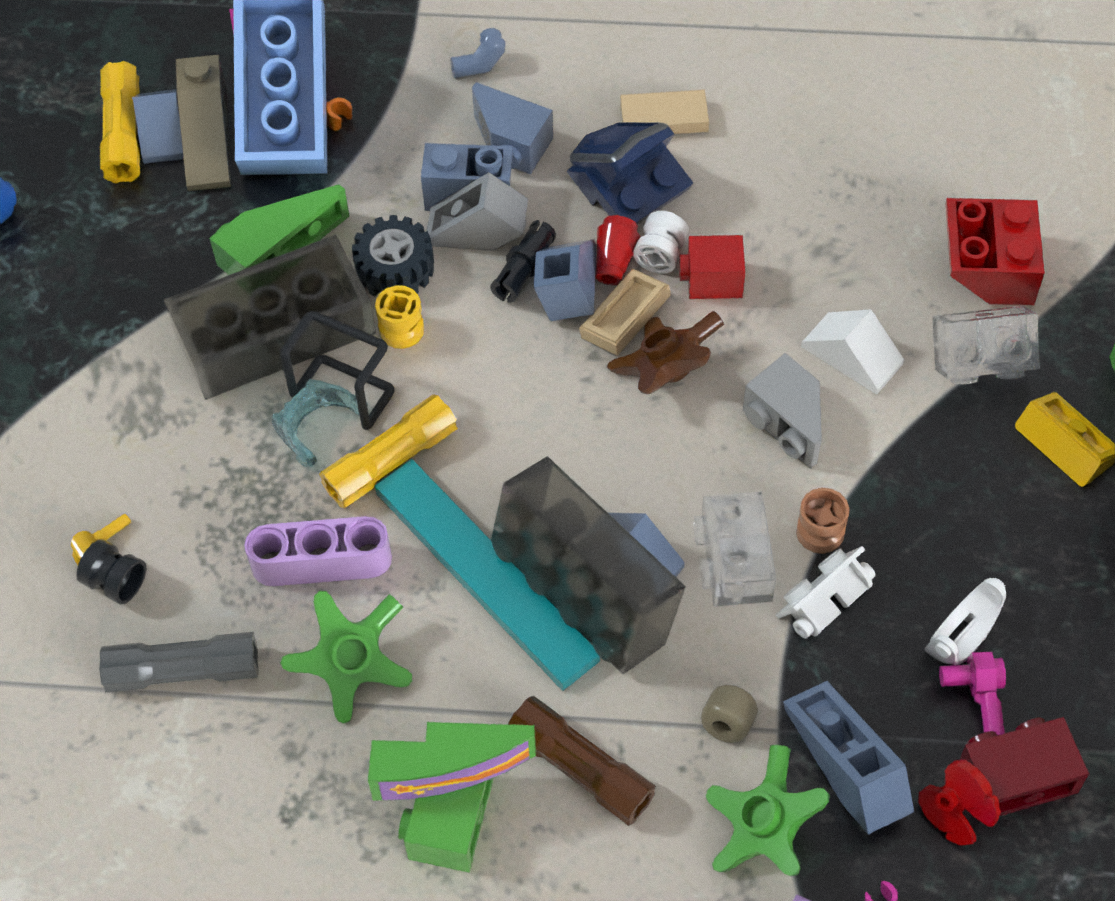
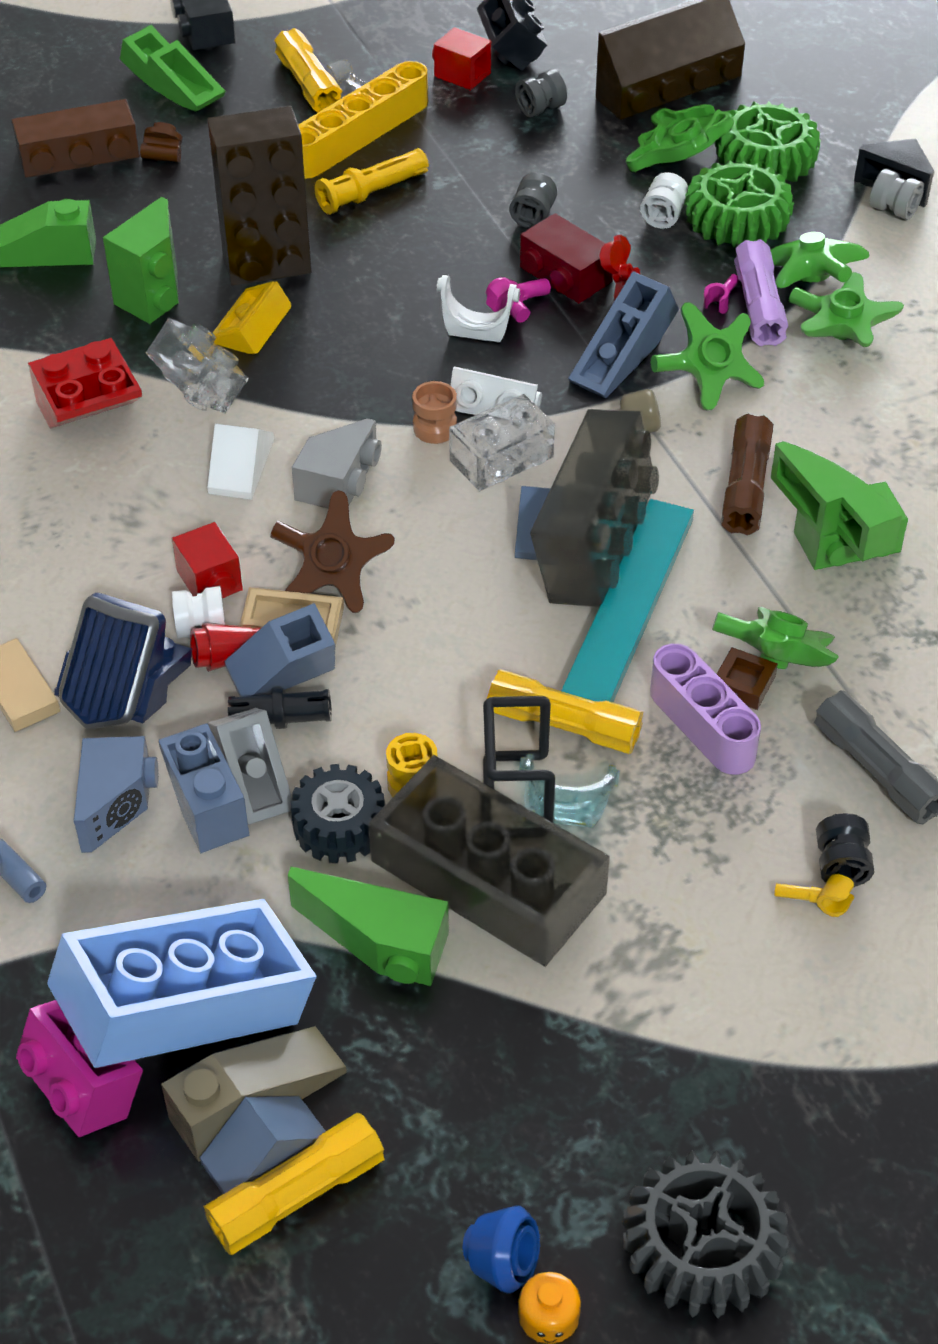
camera: 120 degrees left, 10 degrees down
(342, 594) = (748, 676): none -> reddish brown plate

